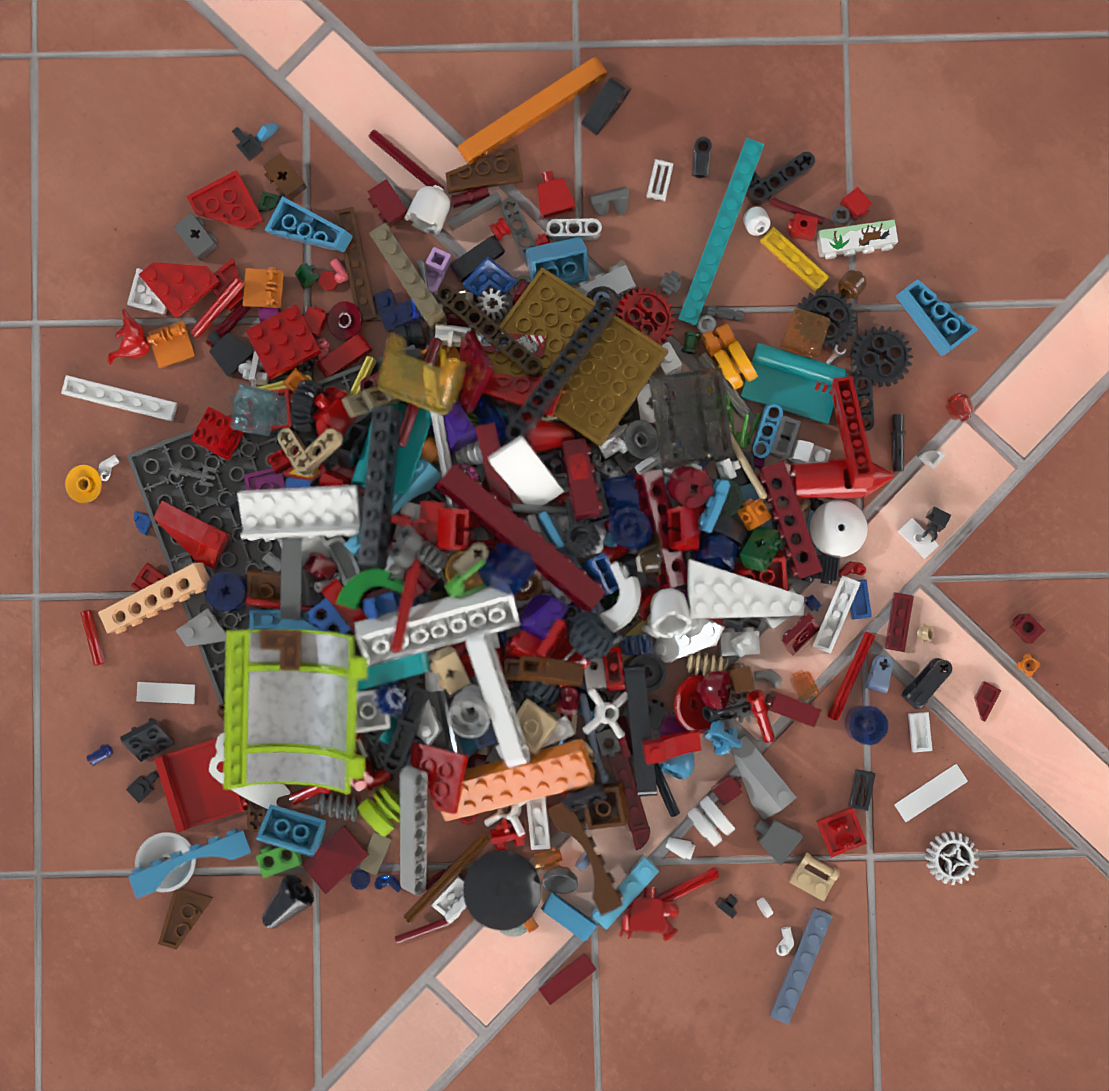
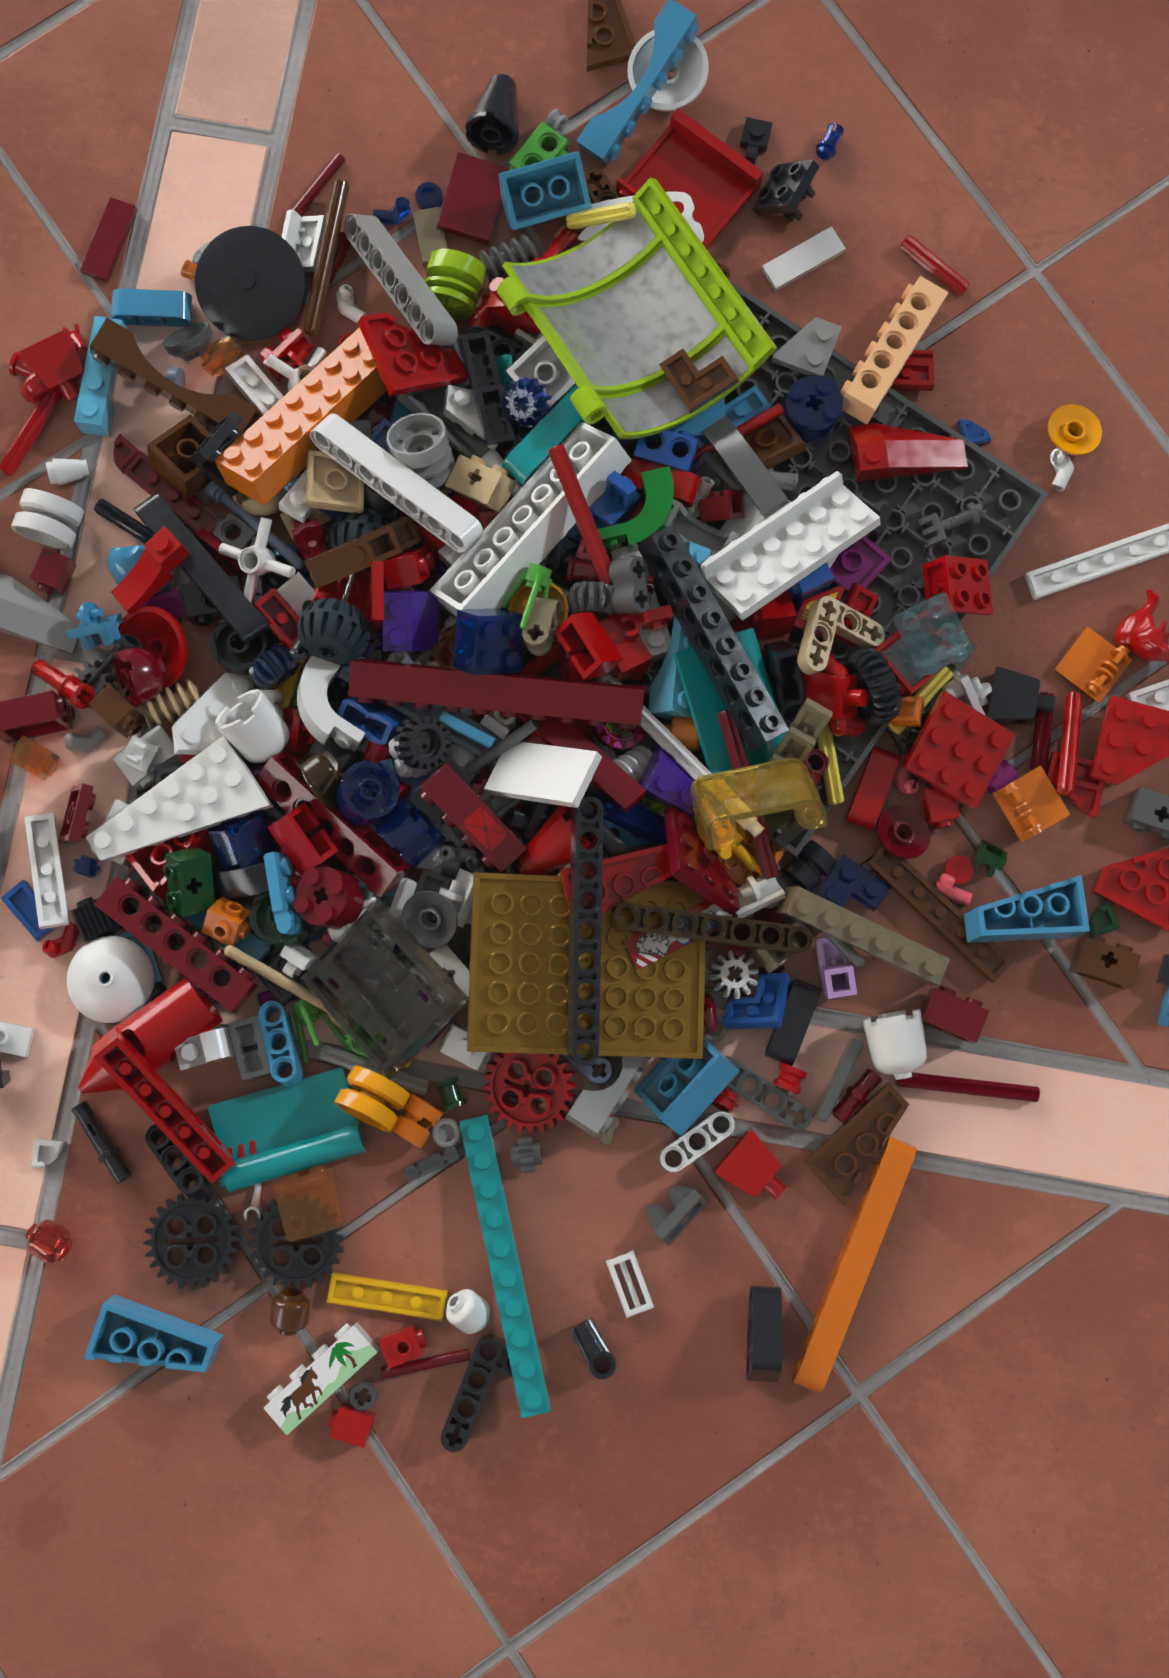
camera: 145 degrees right, 5 degrees down
(254, 875) = (556, 121): none -> light grey bush
(269, 792) = (601, 215): none -> light yellow axle
(453, 842) = (346, 304): none -> white arm

